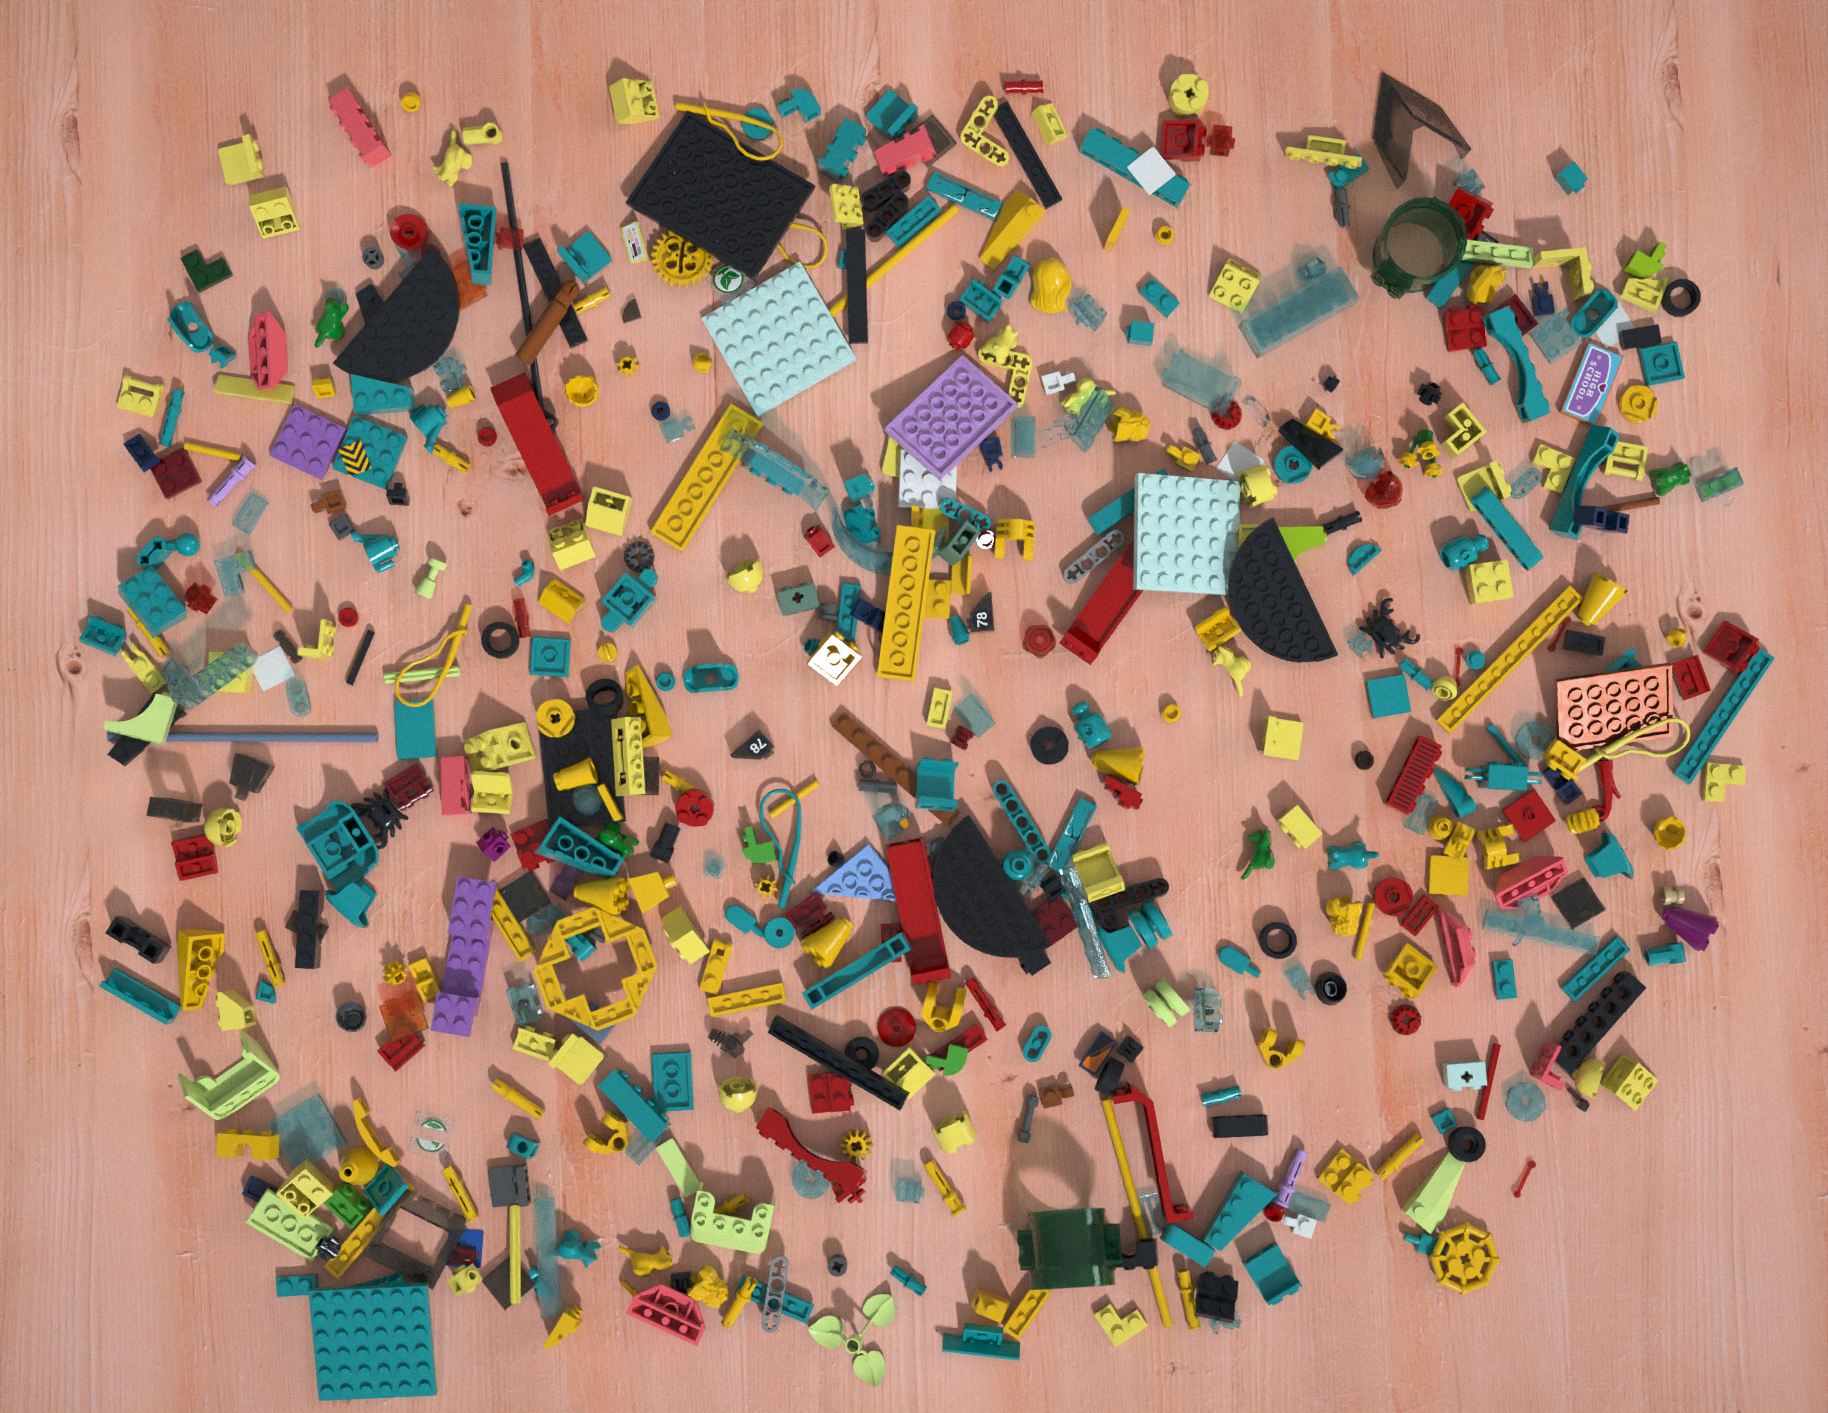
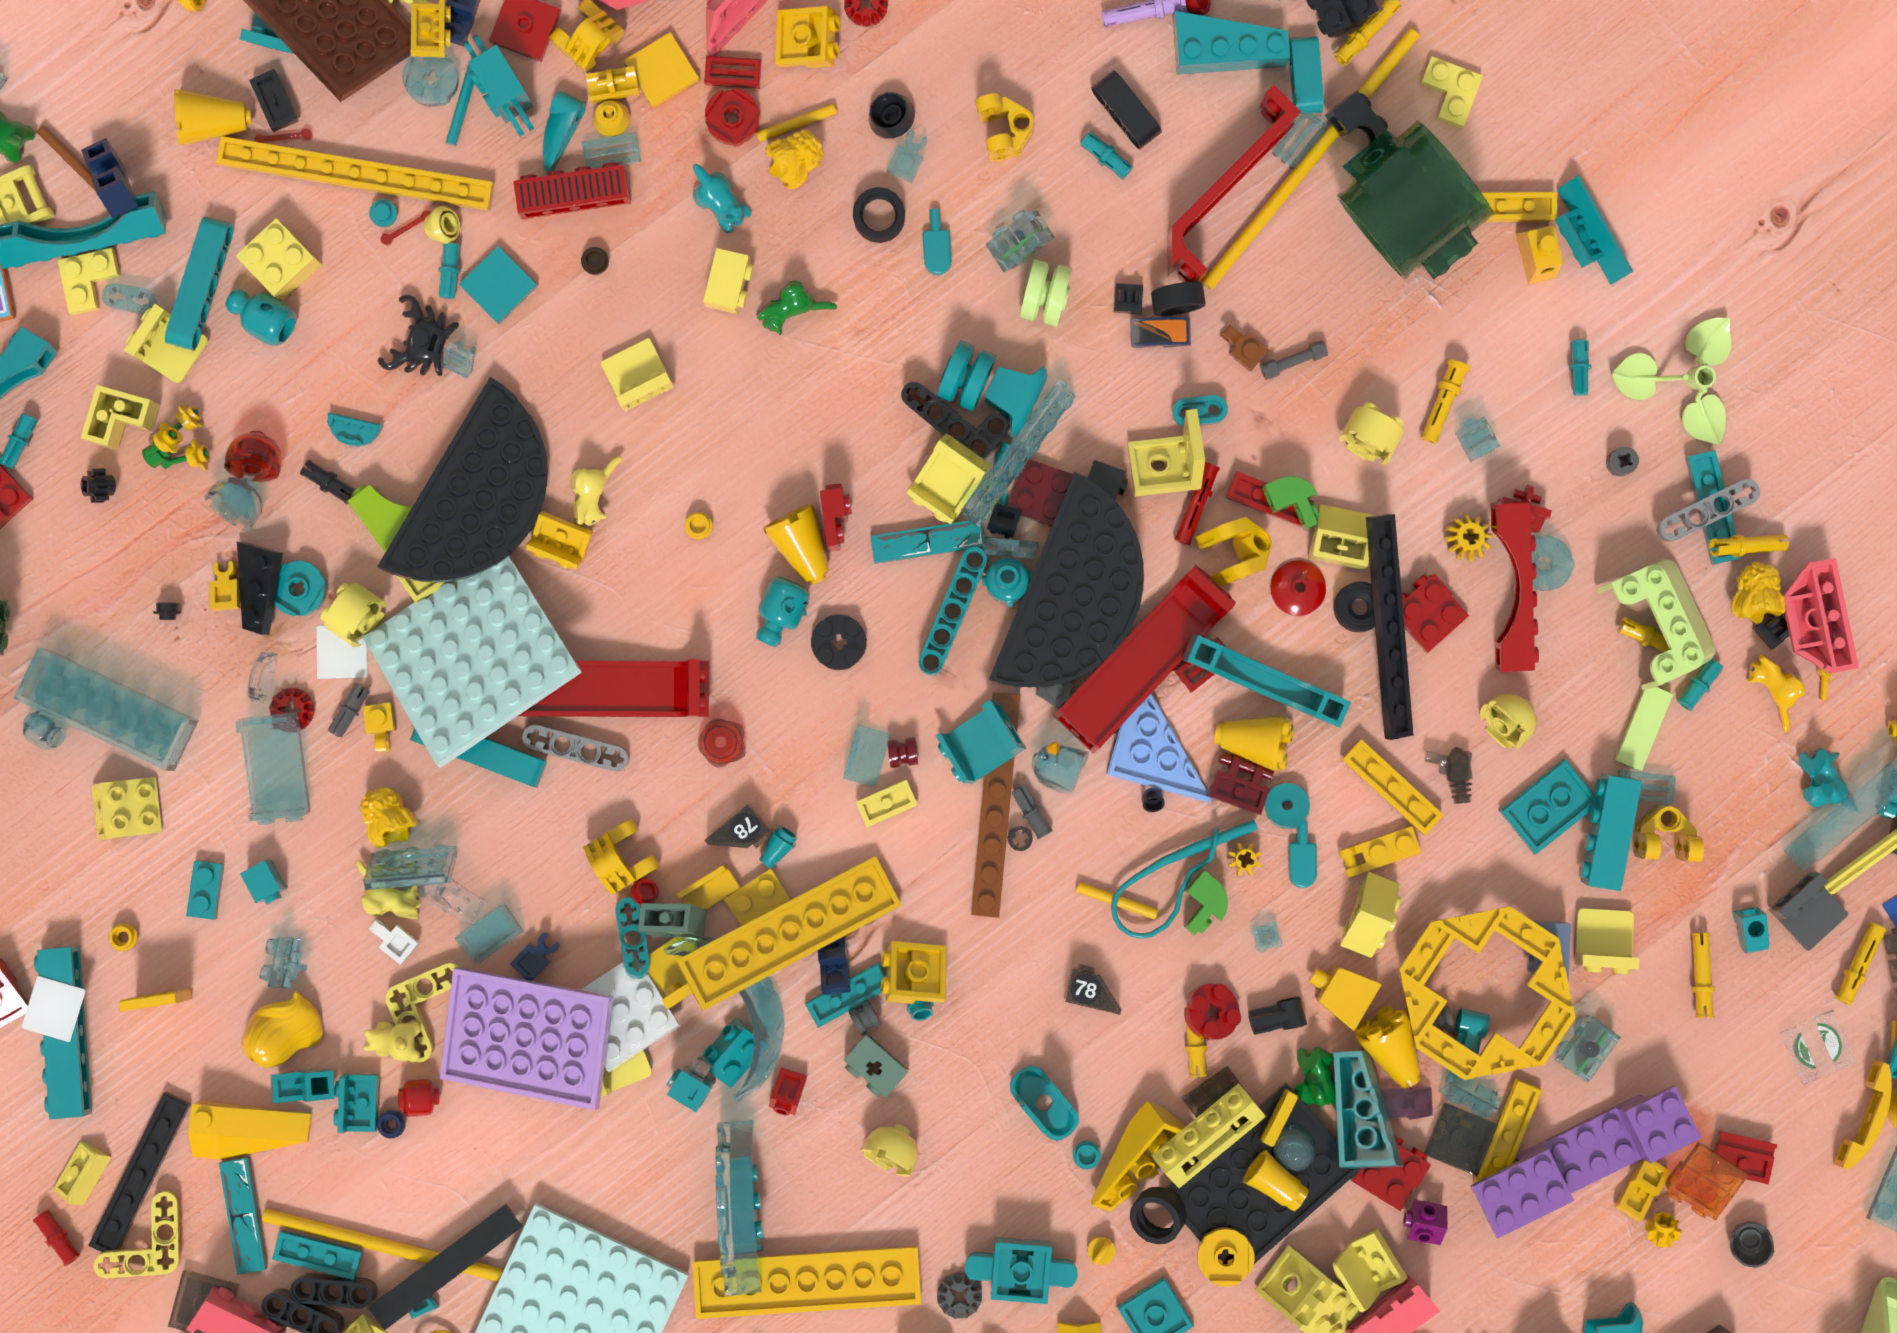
camera: 120 degrees left, 0 degrees up
(535, 1043) = (1623, 1002): light yellow bracket -> none
(1020, 1013) = (1181, 455): none -> light yellow bracket

